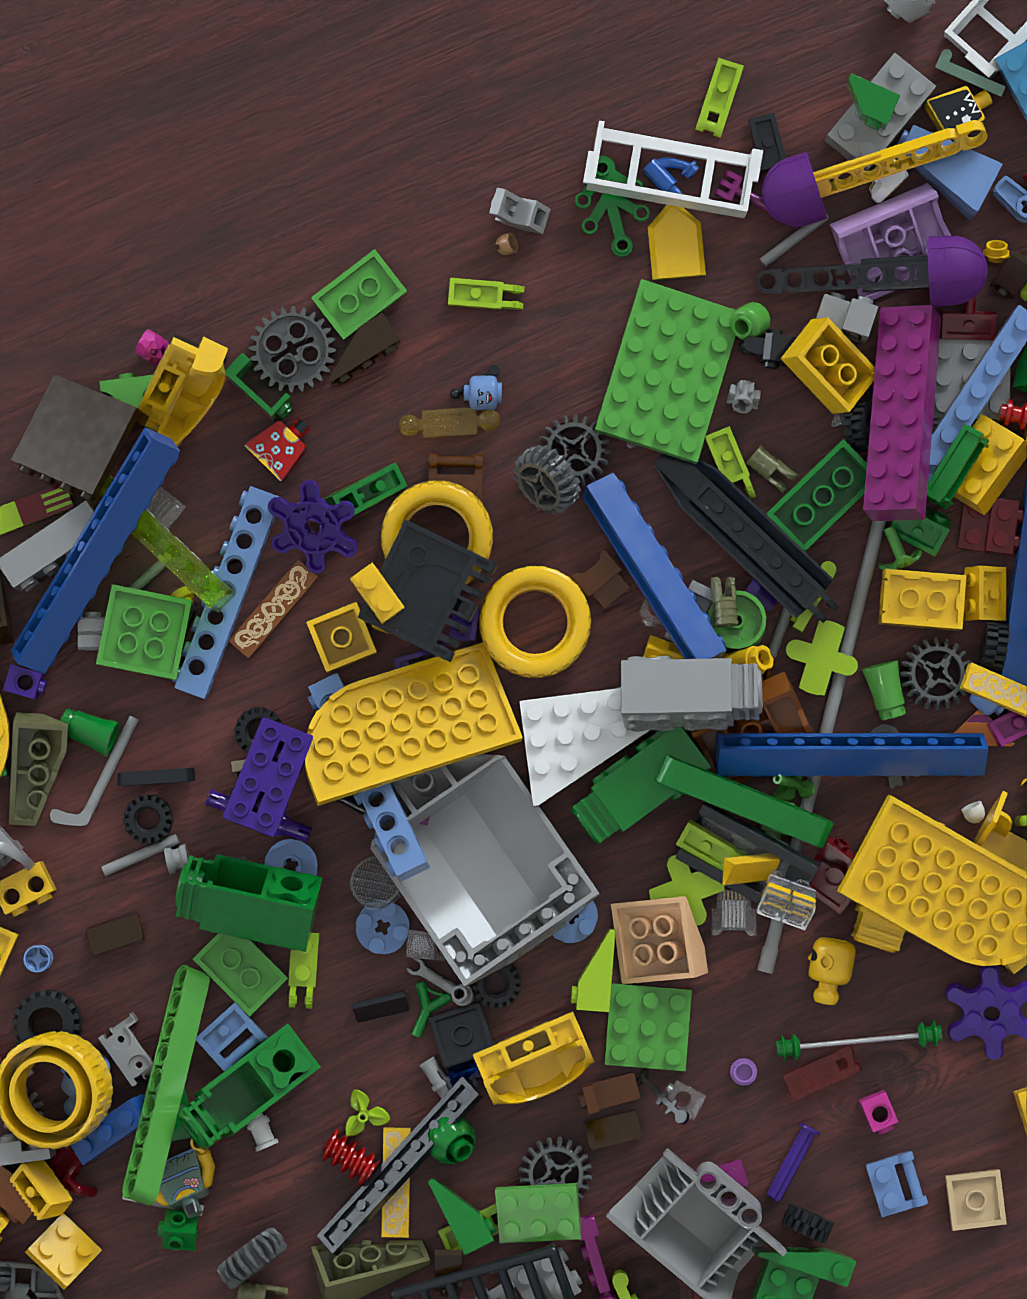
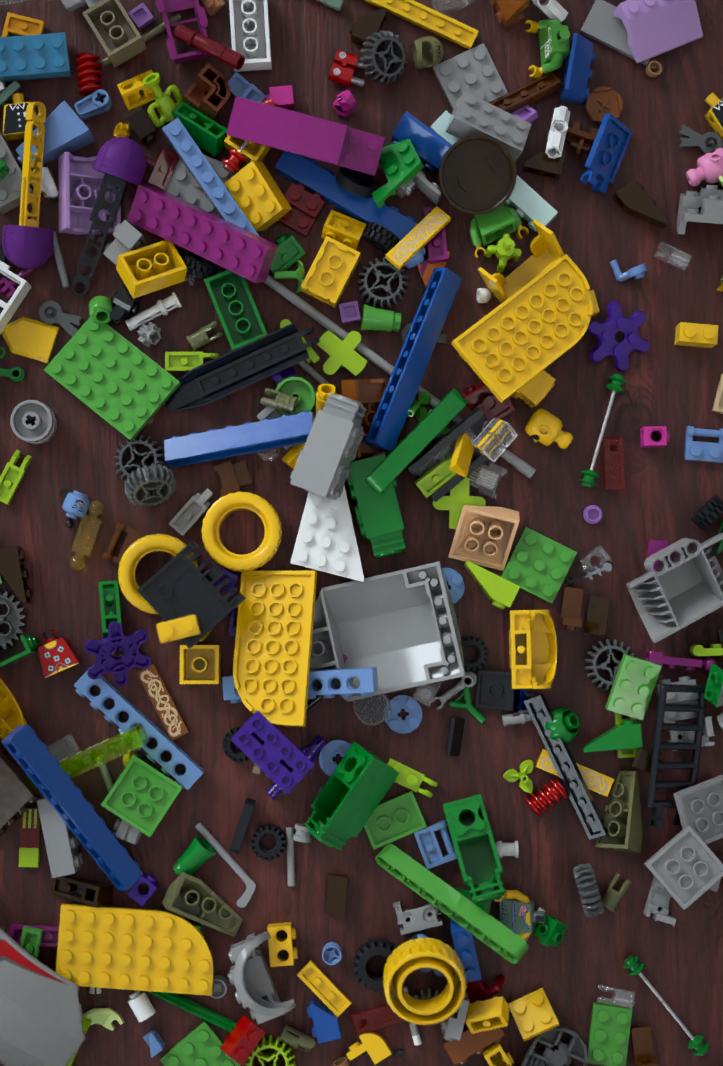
camera: 70 degrees left, 0 degrees up
(533, 546) = (191, 512): none -> light grey hinge
(569, 278) = (25, 414): none -> light grey wheel
(720, 258) = (52, 313): none -> dark grey piece
(785, 397) = (161, 308): none -> white pin
(792, 1162) = (663, 505): dark purple axle -> none
(880, 645) = (349, 312): none -> medium lavender plate
(955, 466) = (251, 211): green container -> none

